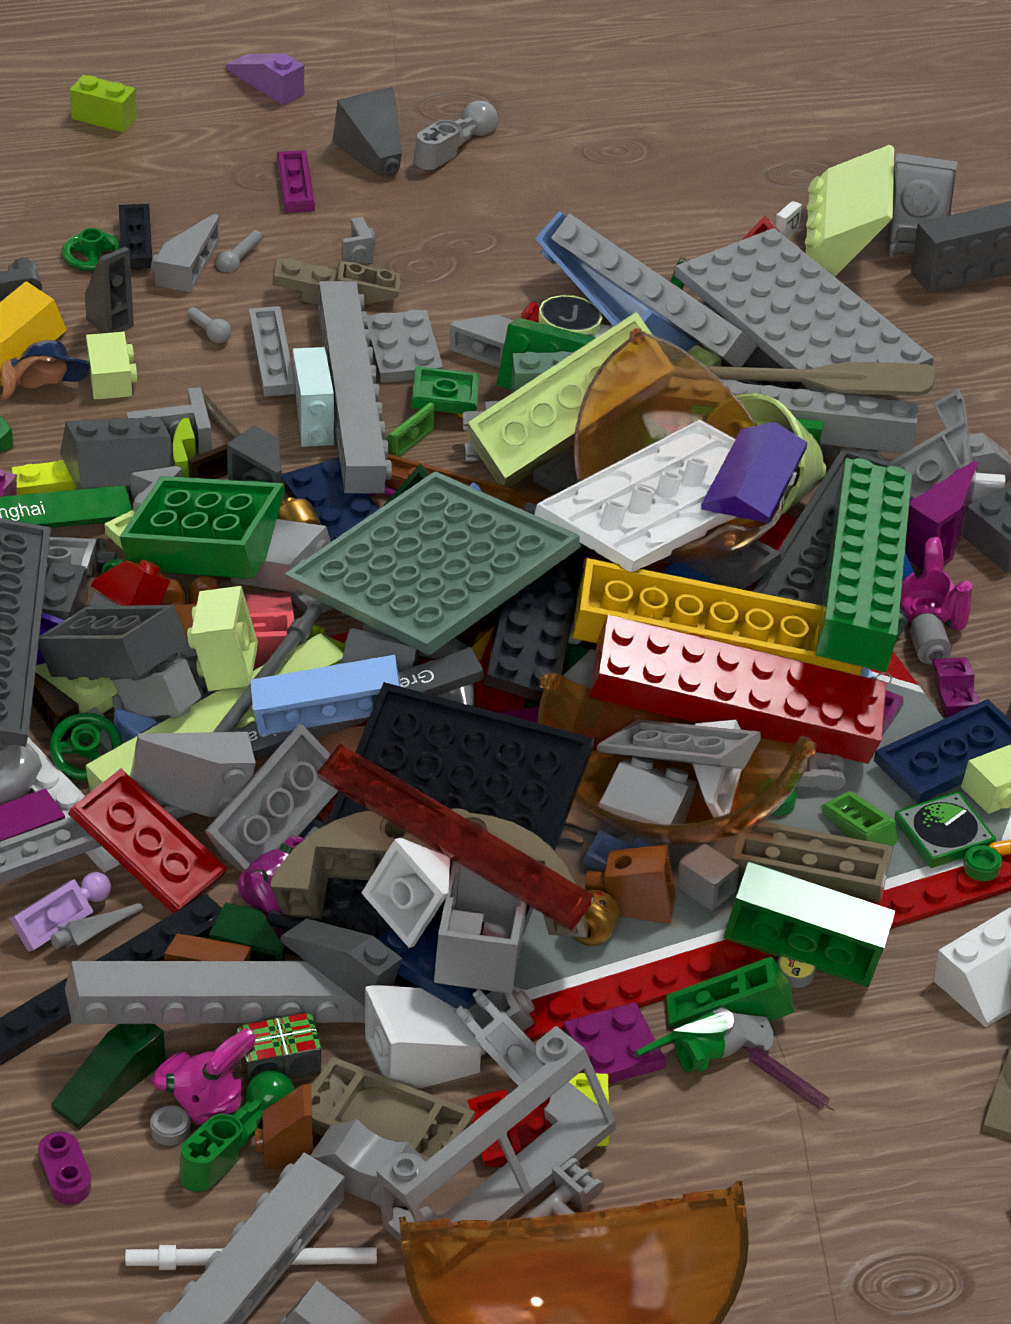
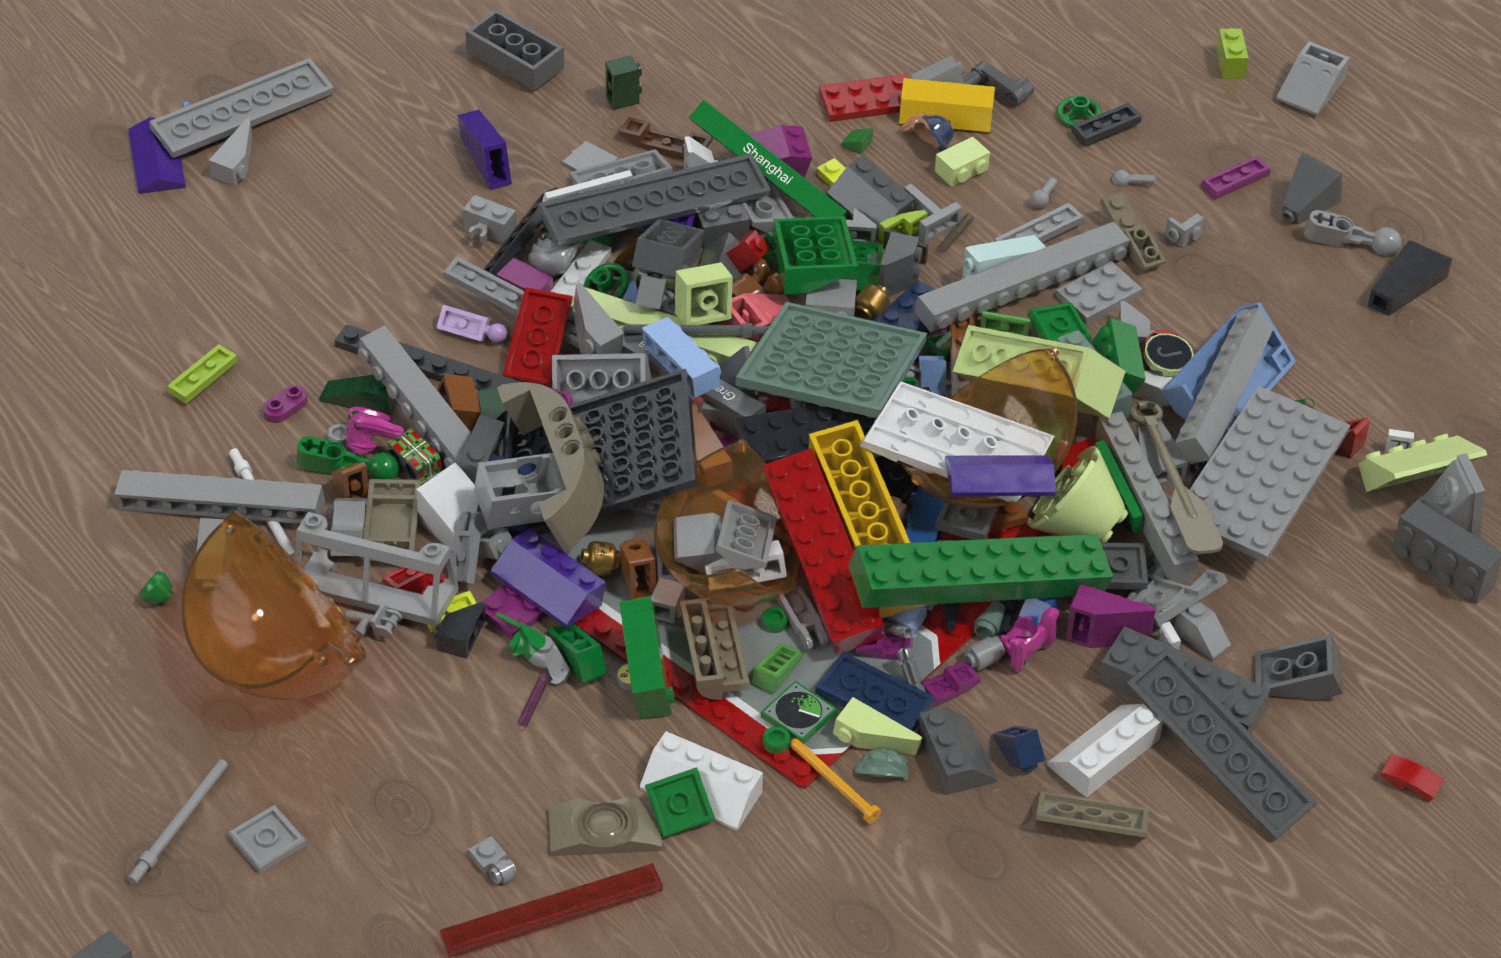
camera: 65 degrees right, 5 degrees up
(81, 930) = (460, 340): light grey piece -> none
(110, 293) = (1017, 130): dark grey slope -> none
(186, 255) = (1106, 154): light grey slope -> none
(195, 63) = (1314, 78): none -> light grey slope
(272, 74) = (1340, 121): medium lavender slope -> none
(409, 888) = (528, 441): white slope -> none
(456, 837) = (555, 440): clear red plate -> none
(547, 123) = (1408, 277): none -> black slope
(606, 976) = (549, 578): none -> slope
(638, 1107) = (460, 630): none -> black slope
(930, 702) = (910, 668): none -> dark grey axle

